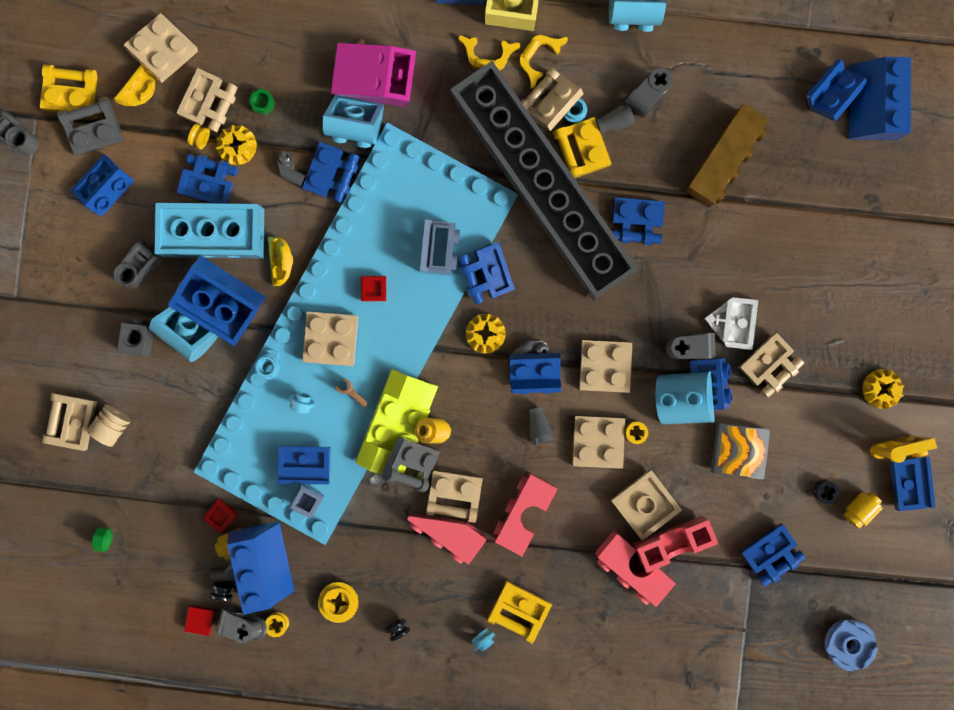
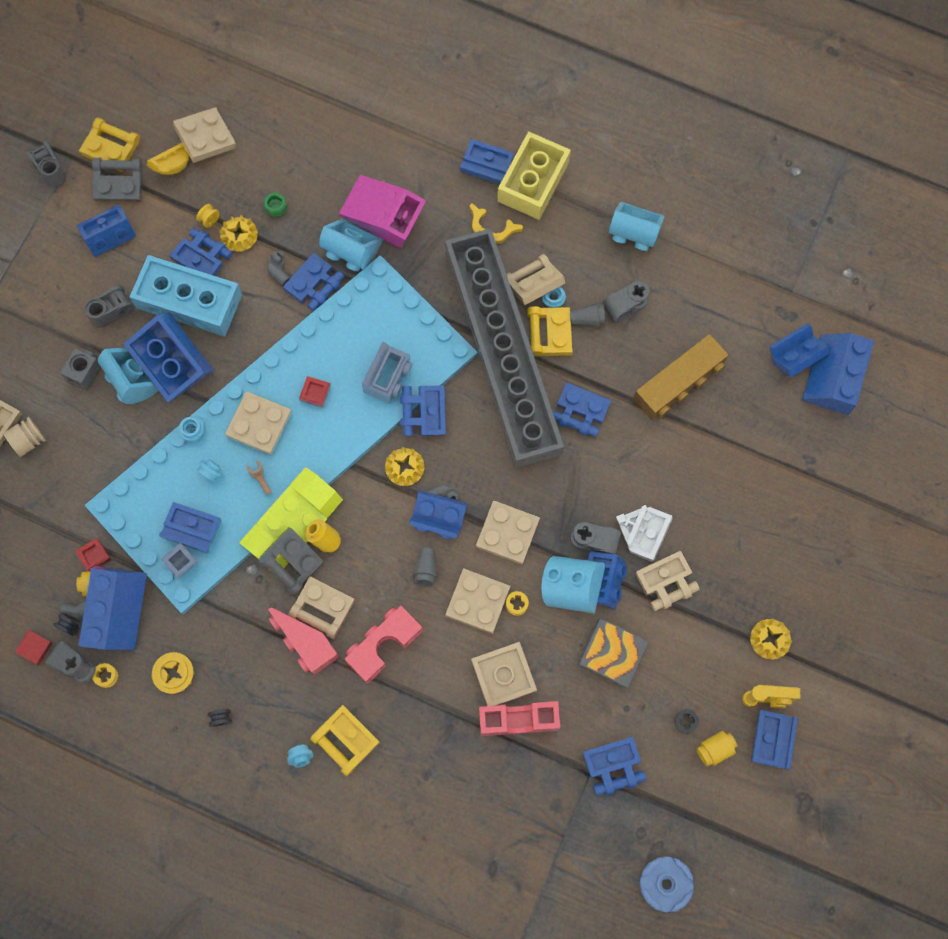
camera: 15 degrees right, 15 degrees down
(200, 96) = (222, 184): tan plate -> none
(280, 260) = (239, 342): yellow plate -> none
(536, 42) = (538, 229): yellow helmet -> none
(616, 554) = (481, 754): coral arch -> none

